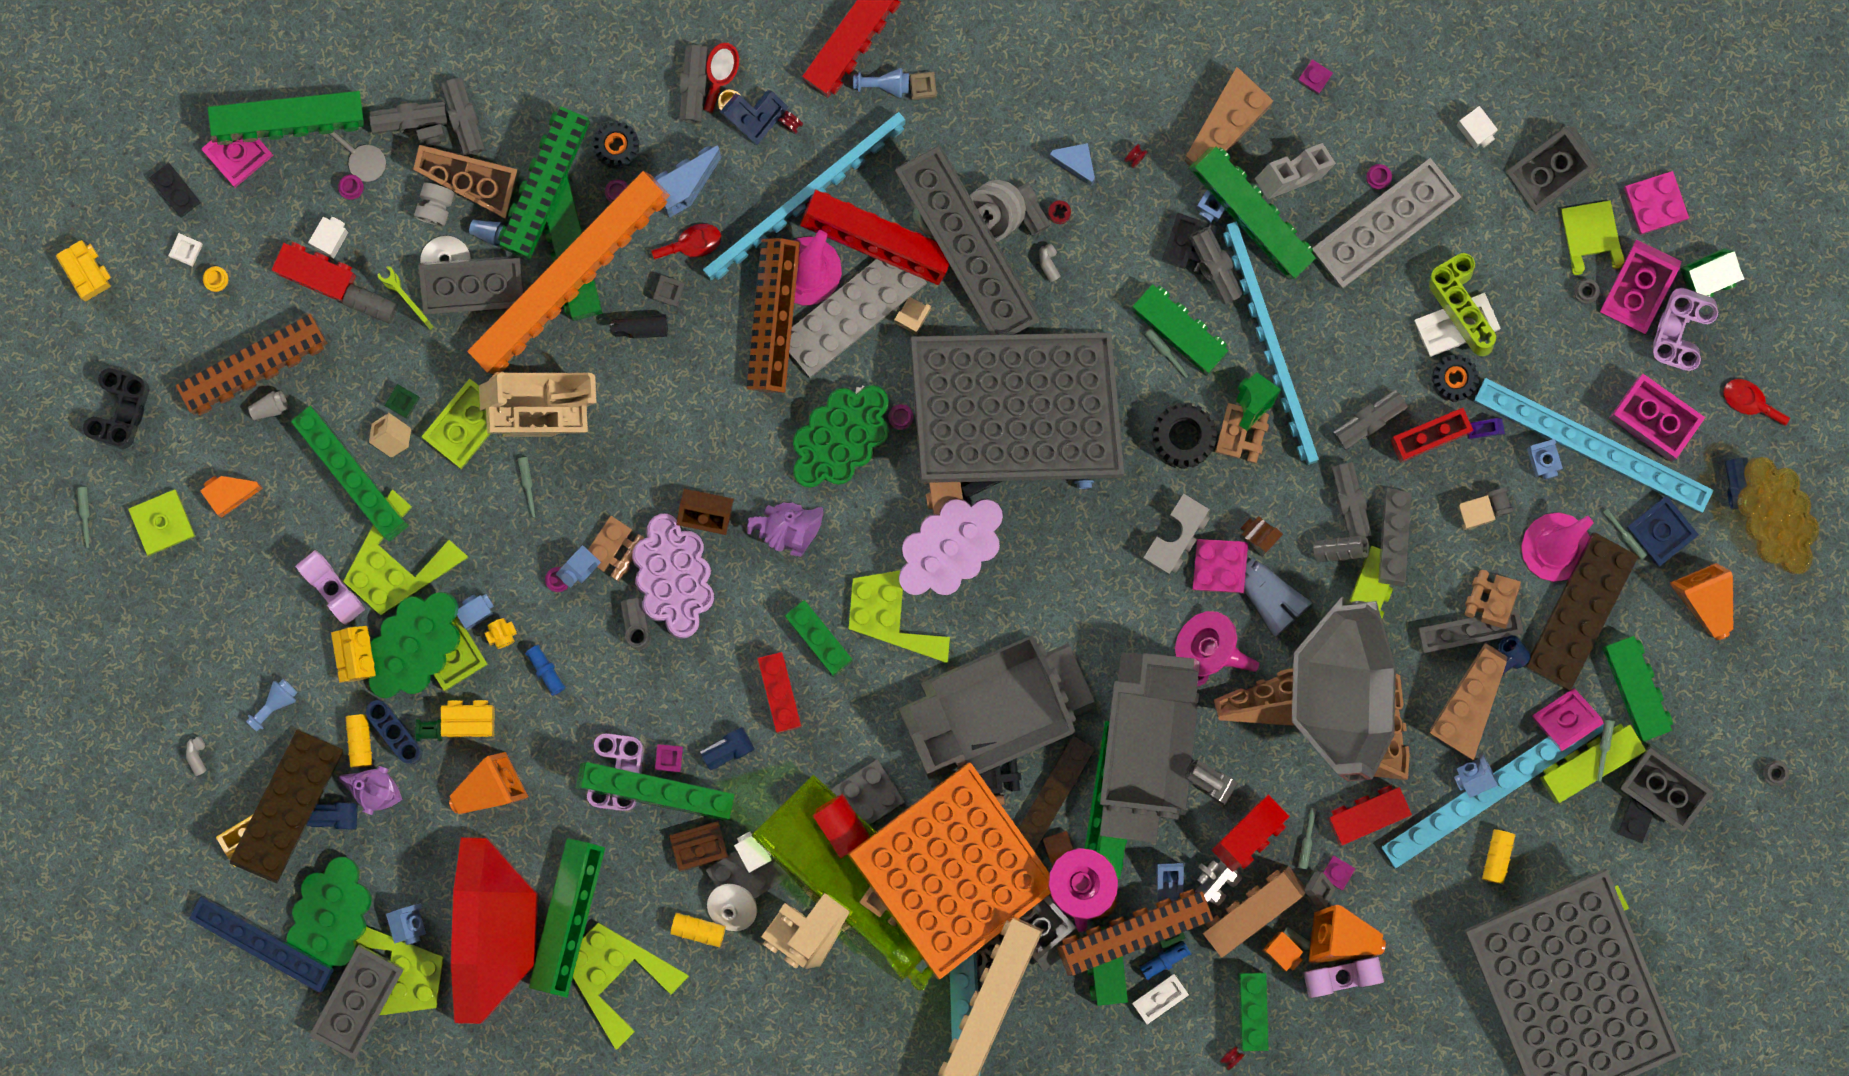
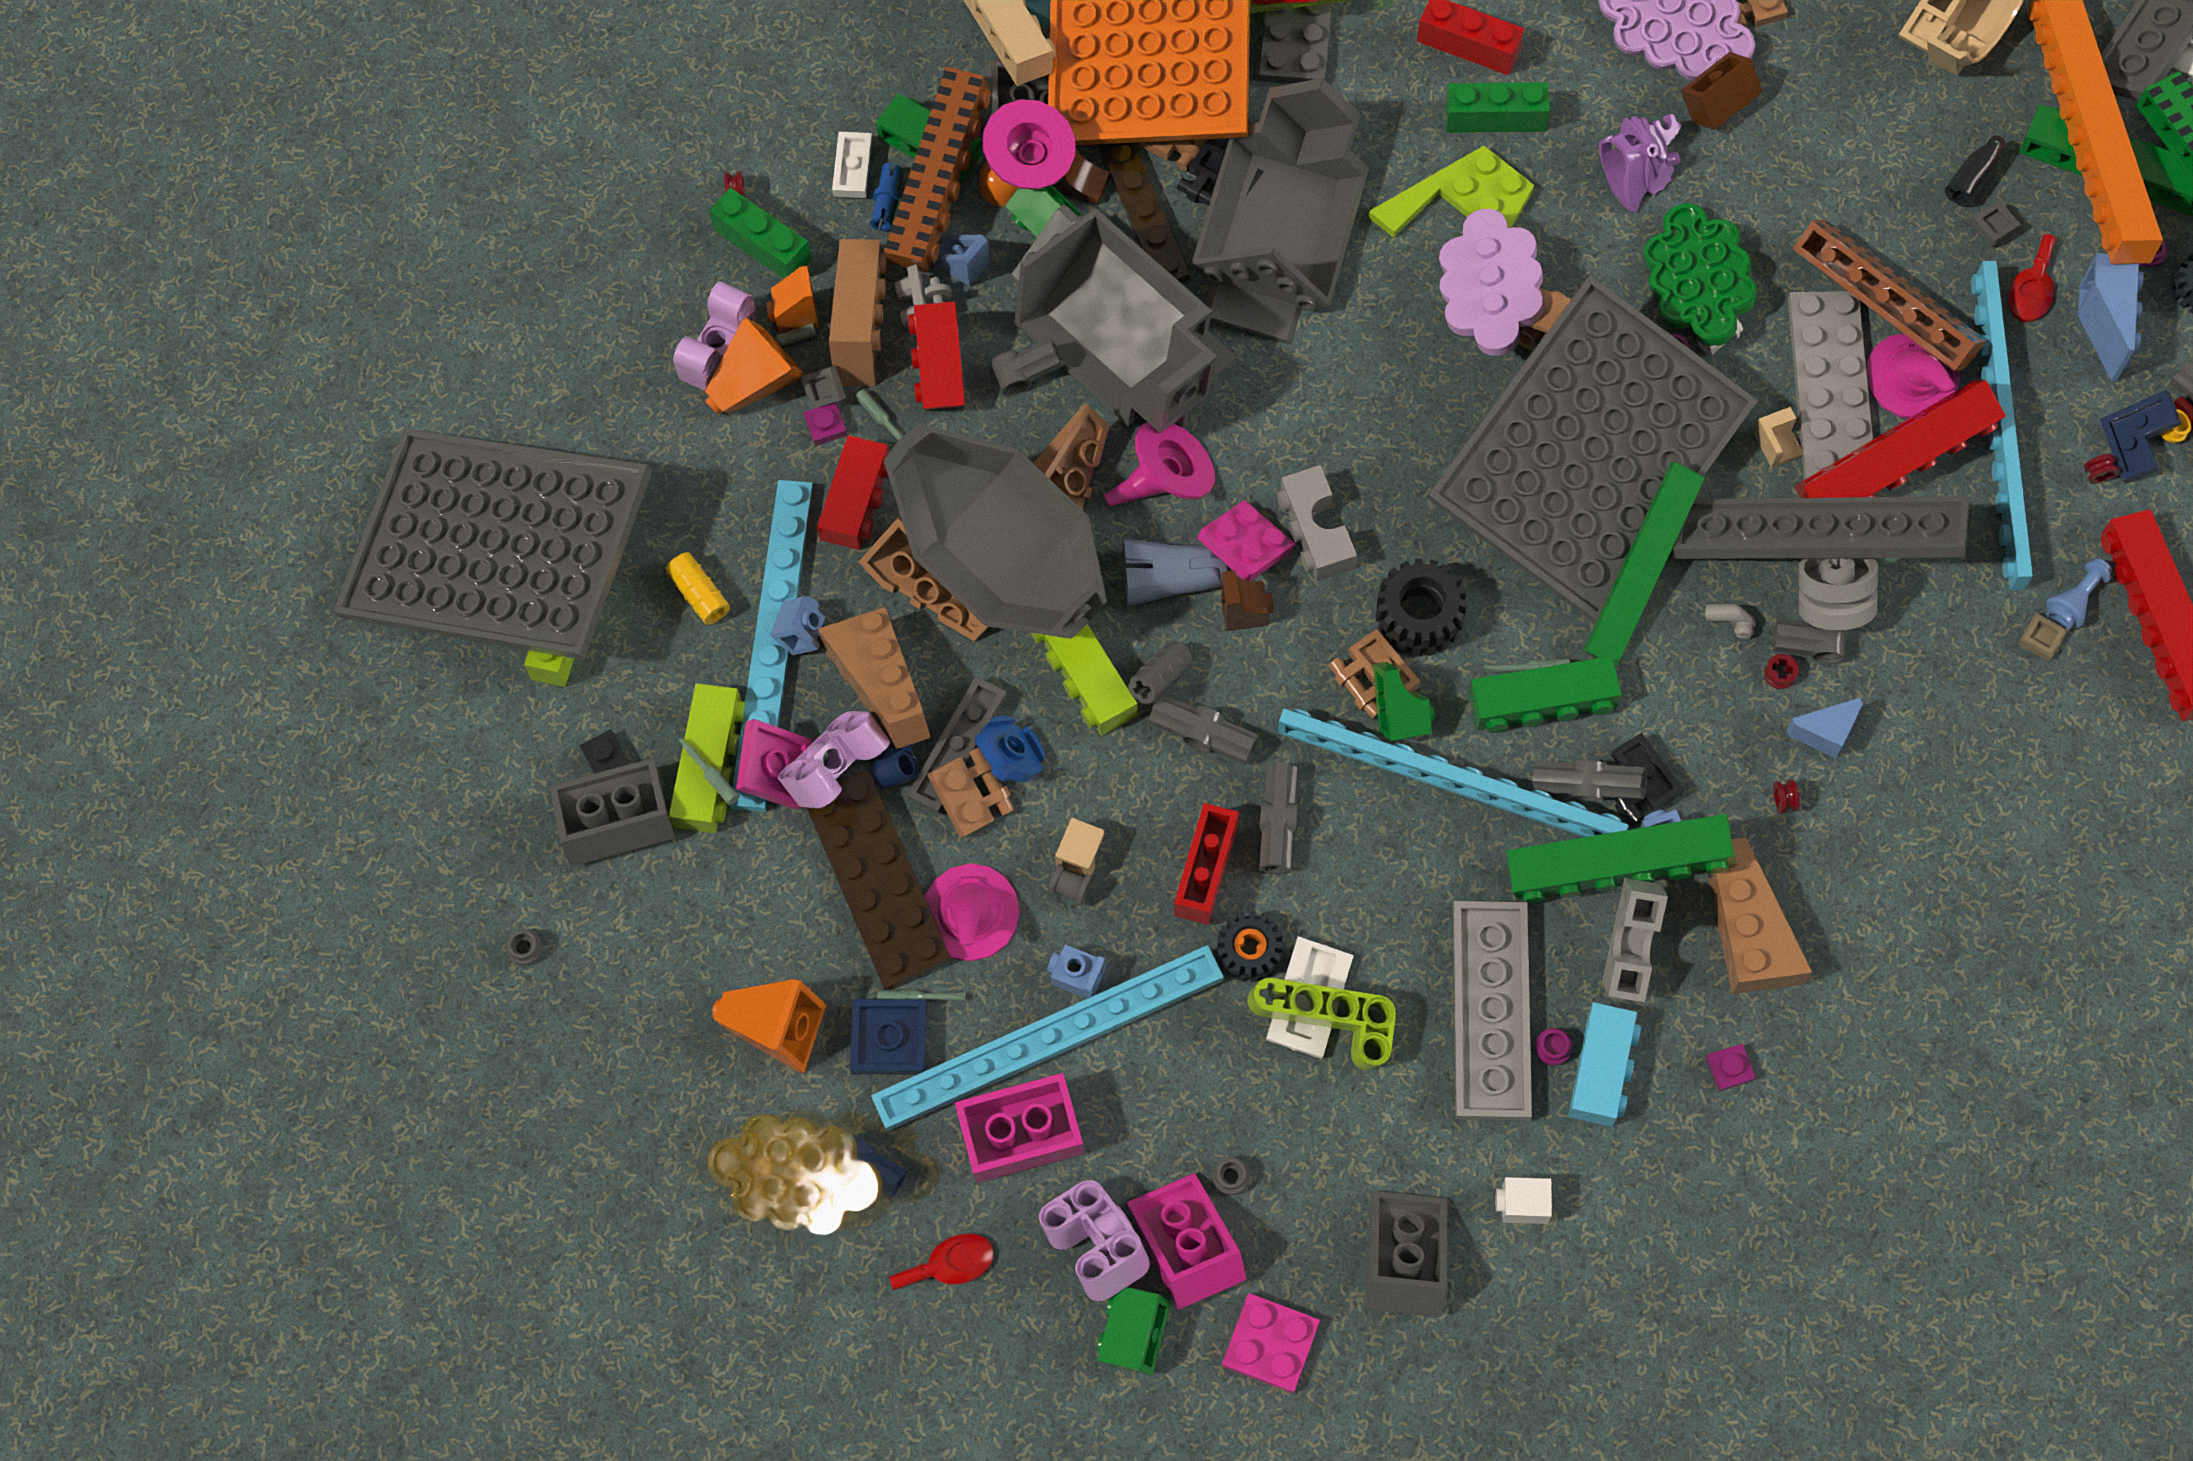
camera: 135 degrees right, 15 degrees down
(1060, 330) = (1644, 563): none -> green tile
(1370, 141) = (1604, 1065): none -> medium azure brick
(1394, 537) = (1125, 735): dark grey plate -> none
(1463, 600) = (996, 744): none -> blue plate
(1487, 428) = (1164, 940): dark purple piece -> none
(1541, 692) = (847, 739): none -> lavender beam
(1591, 231) = (1297, 1238): lime flag -> none
(1637, 688) = (742, 868): green brick -> none

